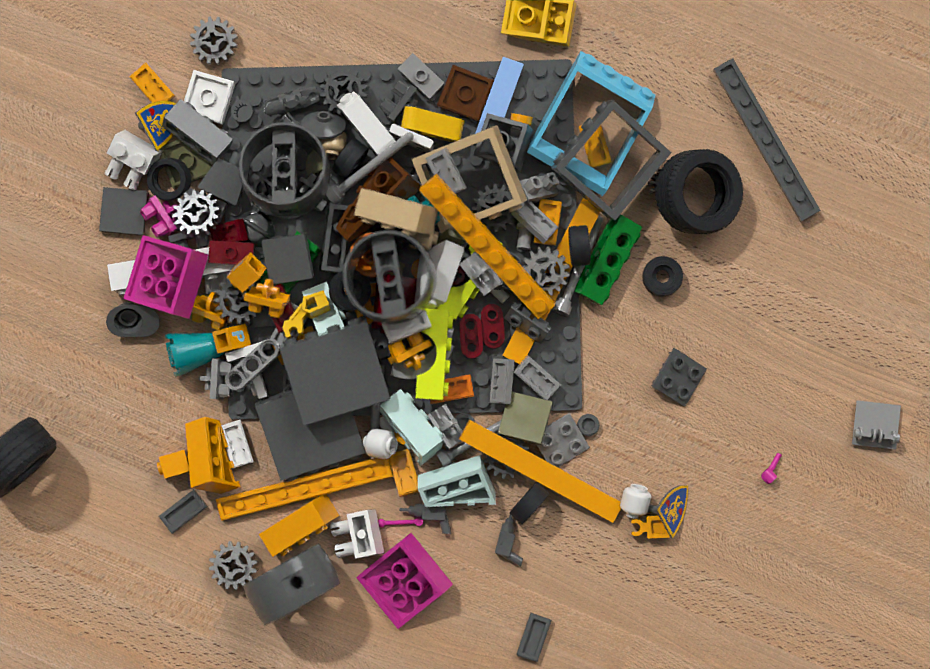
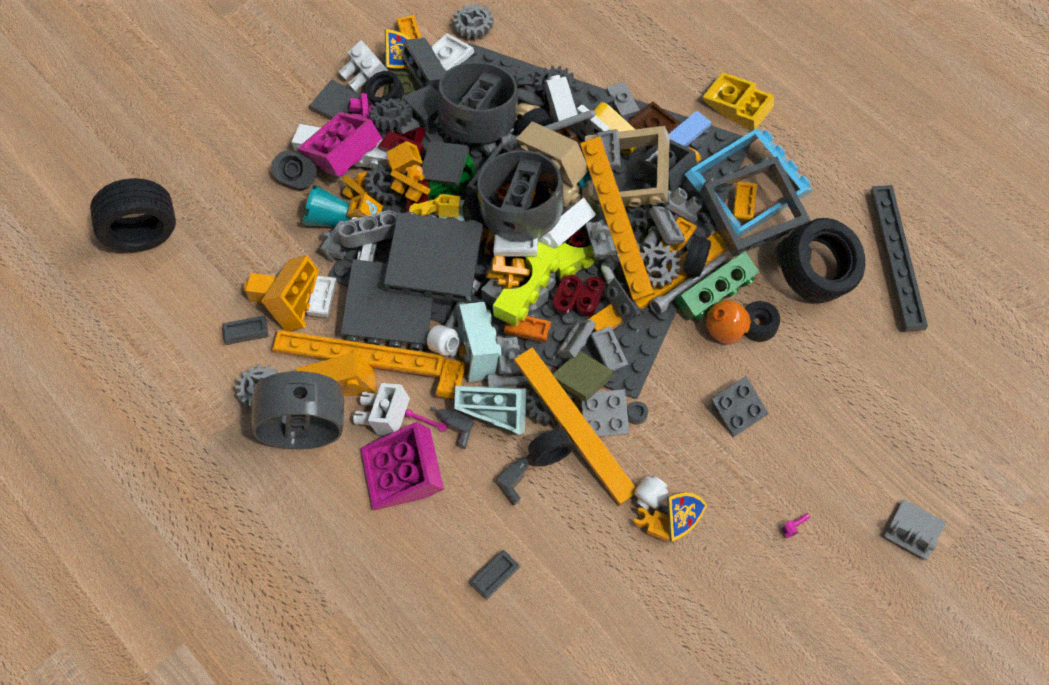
camera: 25 degrees right, 25 degrees down
(634, 295) = (727, 321): none -> orange cylinder

